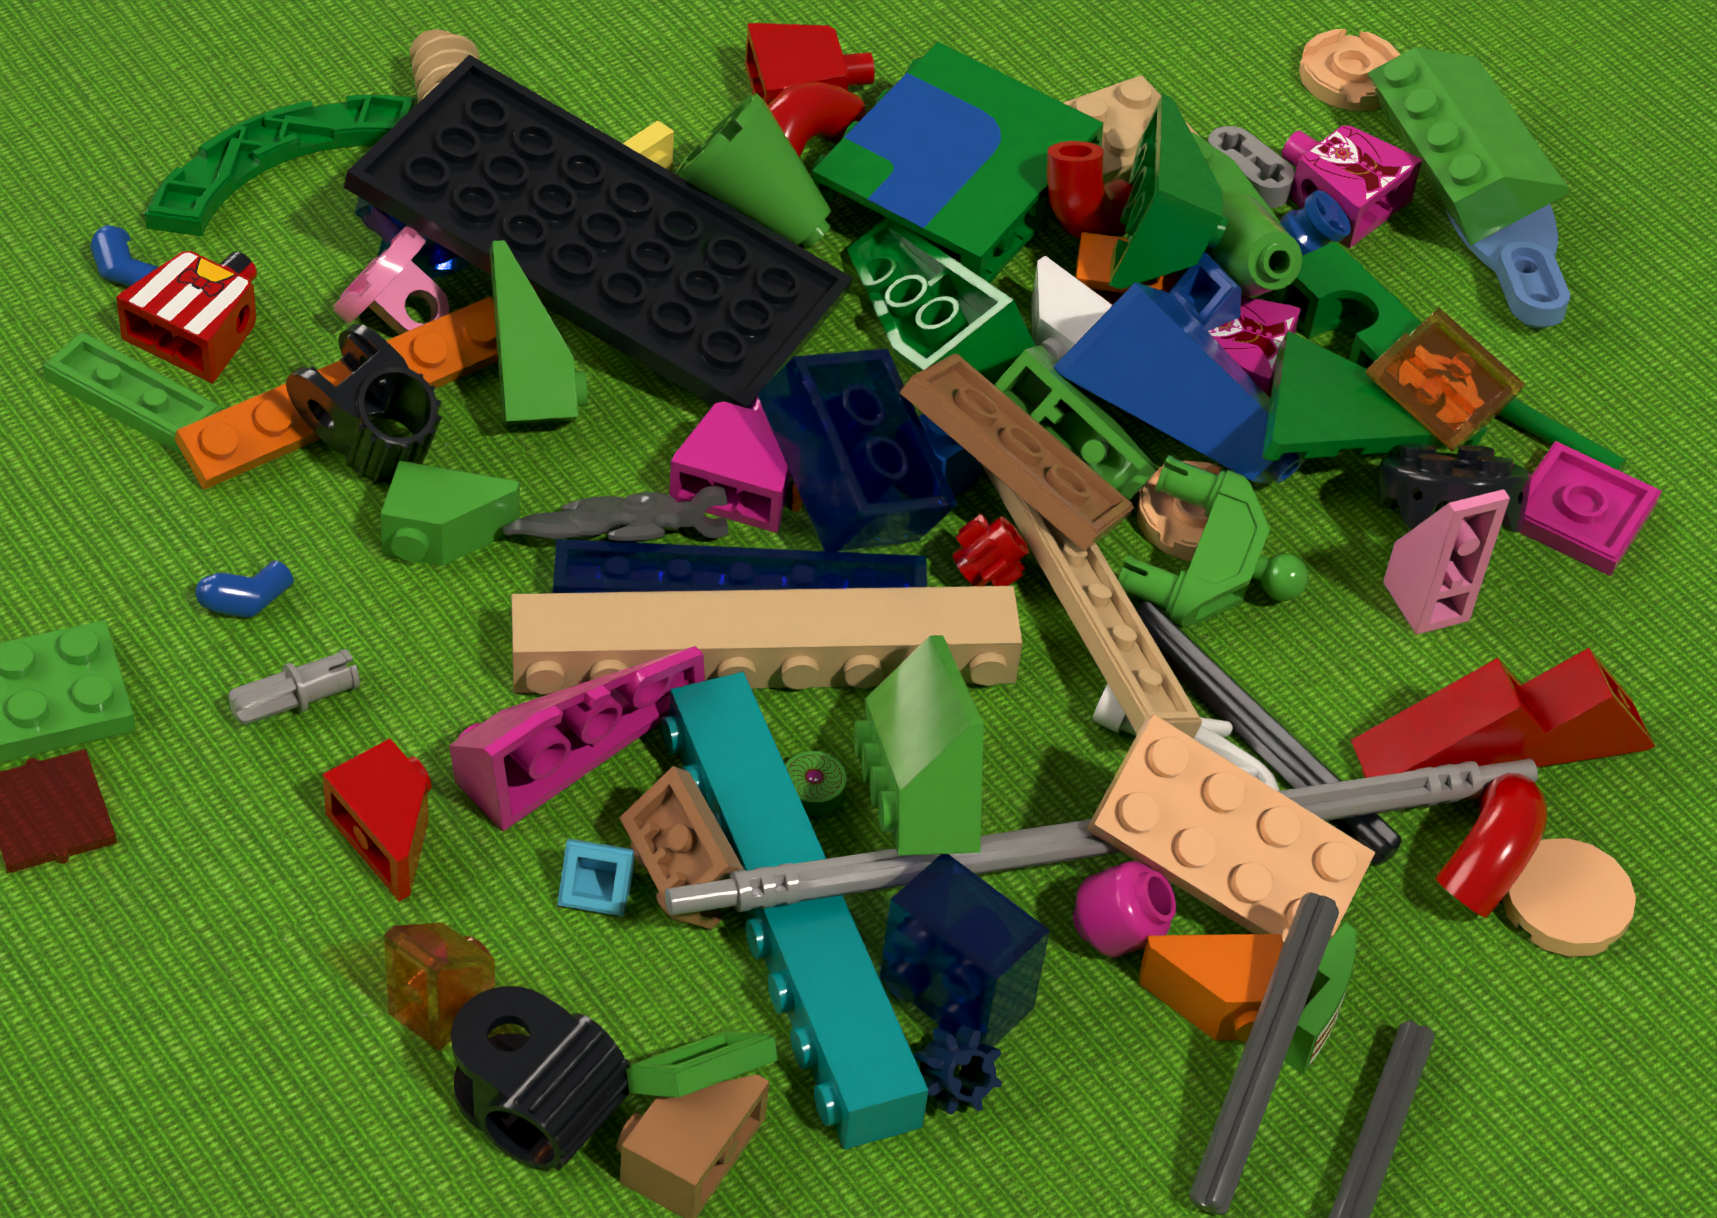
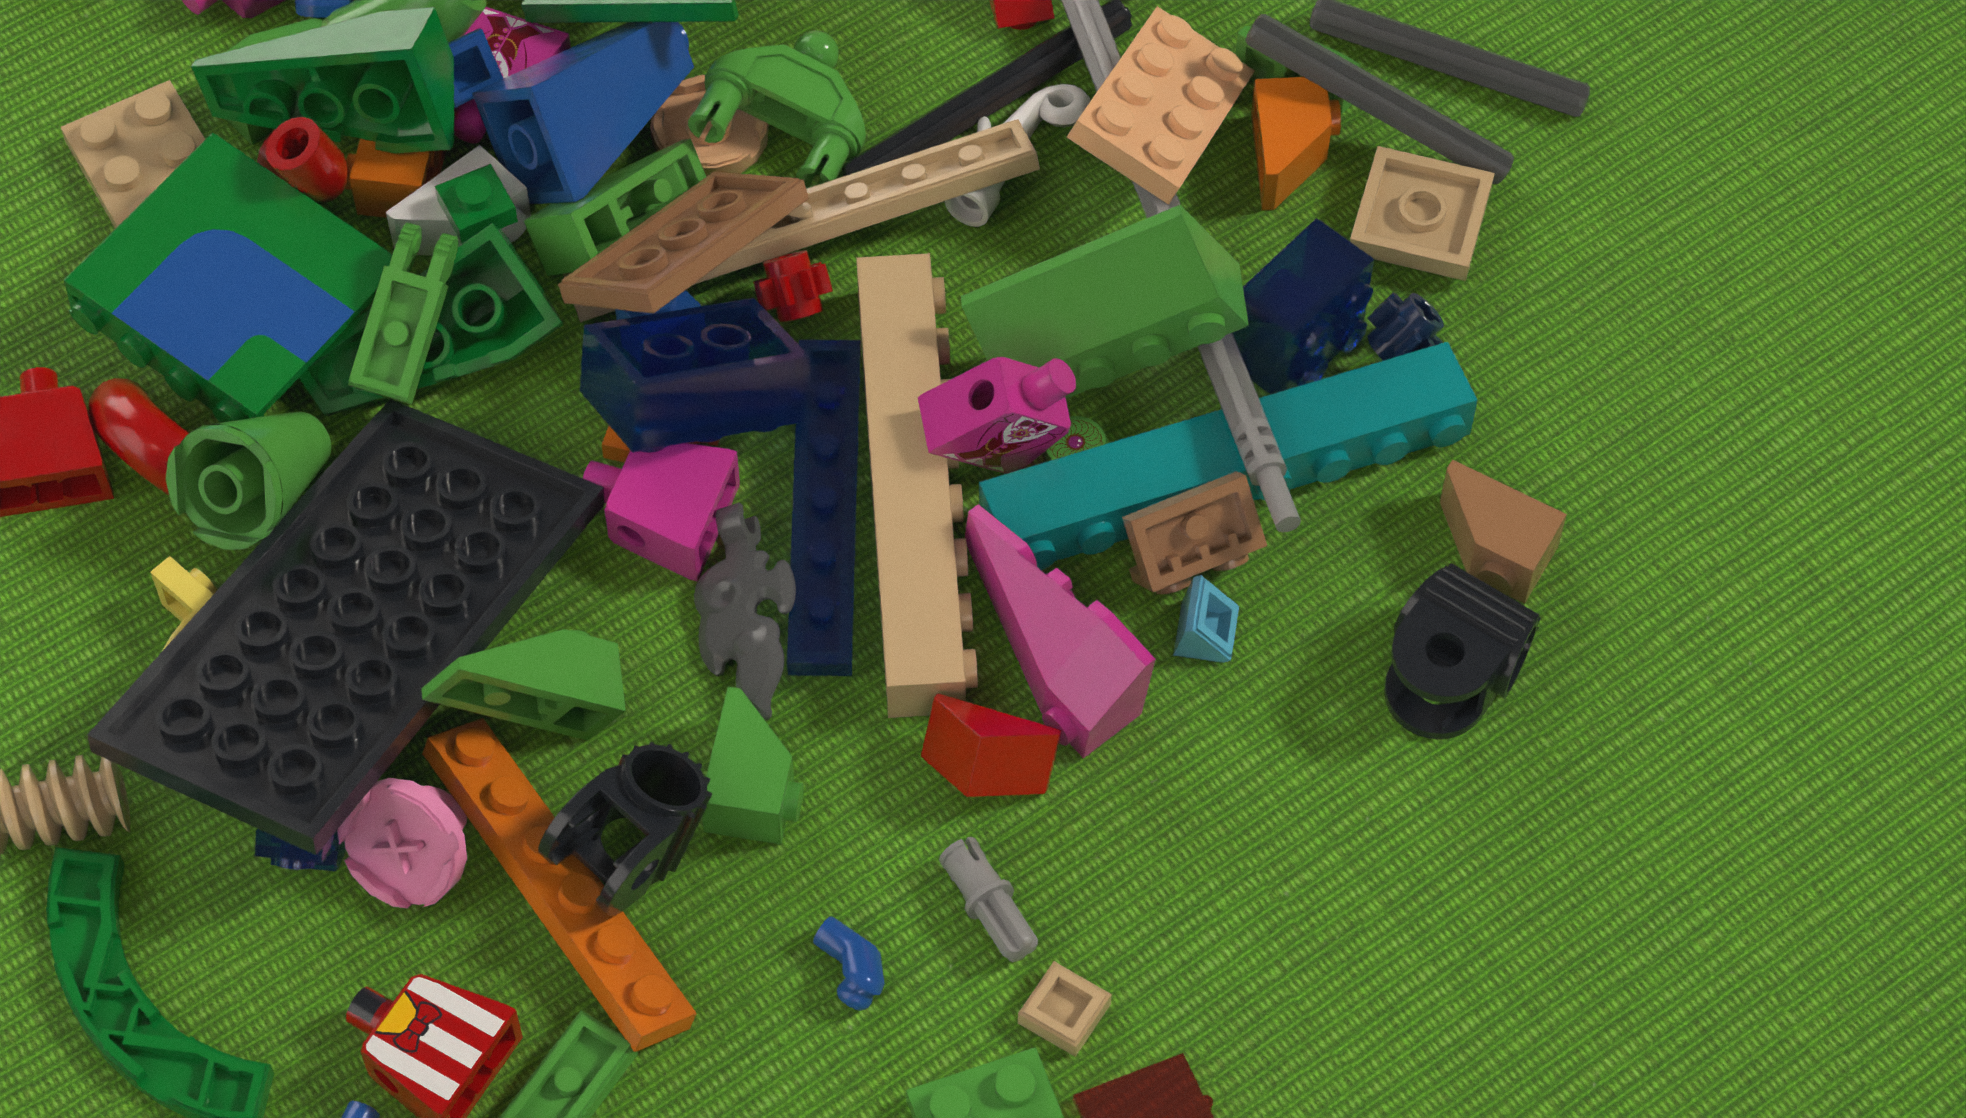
camera: 85 degrees left, 10 degrees up
(177, 747) = (1064, 1008): none -> tan tile
(382, 811) = (1154, 799): red slope -> none
(432, 977) = (1357, 731): clear orange slope -> none
(445, 682) = (988, 749): none -> red slope
(701, 1064) = (1432, 516): bright green tile -> none
(813, 676) = (998, 413): none -> dark pink torso
(922, 258) = (403, 318): none -> bright green hinge
(1052, 307) = (476, 202): none -> green plate
(1123, 908) = (1226, 196): dark pink head -> none
(1131, 1109) = (1422, 212): none -> tan plate
(1261, 165) = (202, 39): light grey beam -> none

